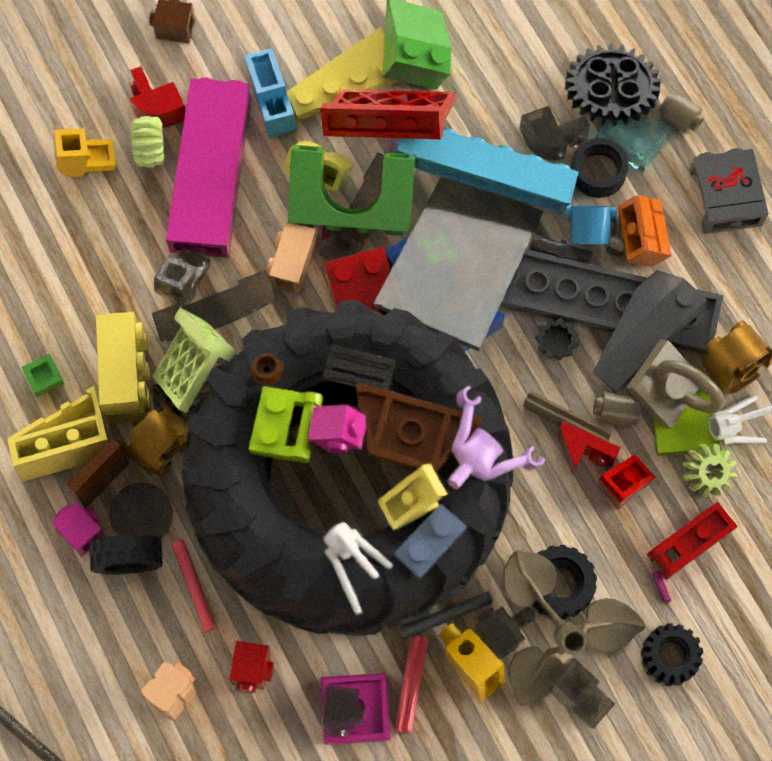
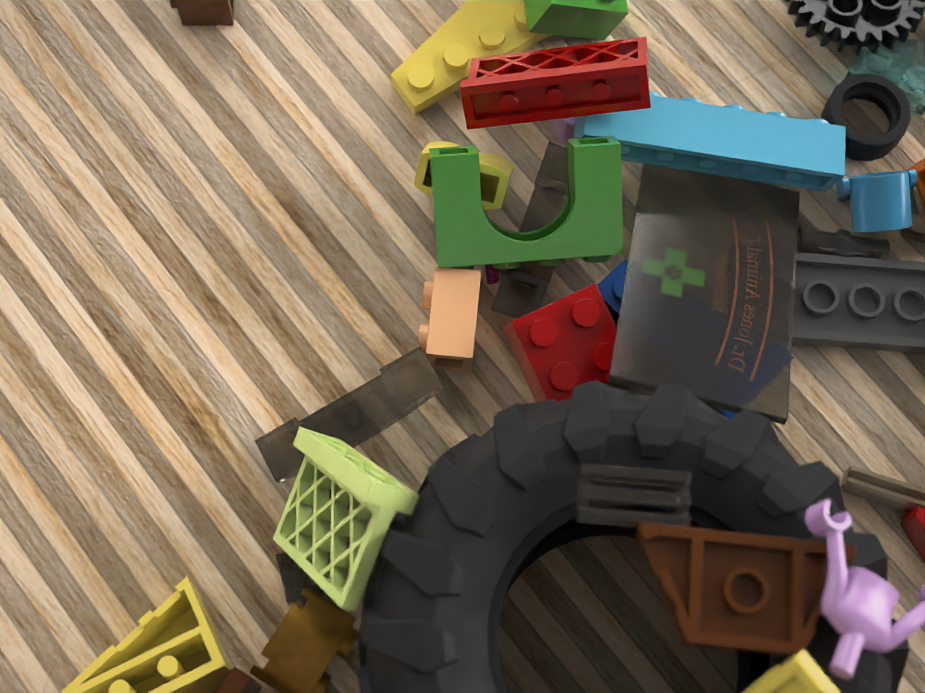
camera: 15 degrees left, 0 degrees up
(42, 375) = (100, 568): bright green plate -> none
(77, 155) = (98, 214): yellow brick -> none
(122, 367) = (226, 537): light yellow piece -> none
(148, 141) = (200, 177): yellowish green gear -> none
(158, 102) = (200, 124): red brick -> none
(181, 276) = (290, 376): clear smoke brick -> none
(209, 167) = (299, 204): dark pink brick -> none
(264, 361) = (483, 509): reddish brown plate -> none
(270, 93) = (369, 79): dark azure slope -> none
(274, 424) = (516, 614): lime plate -> none
(337, 428) = (629, 610): dark pink brick -> none
(548, 138) = (780, 83): clear smoke brick -> none
(557, 339) = (871, 380): pearl dark grey piece -> none

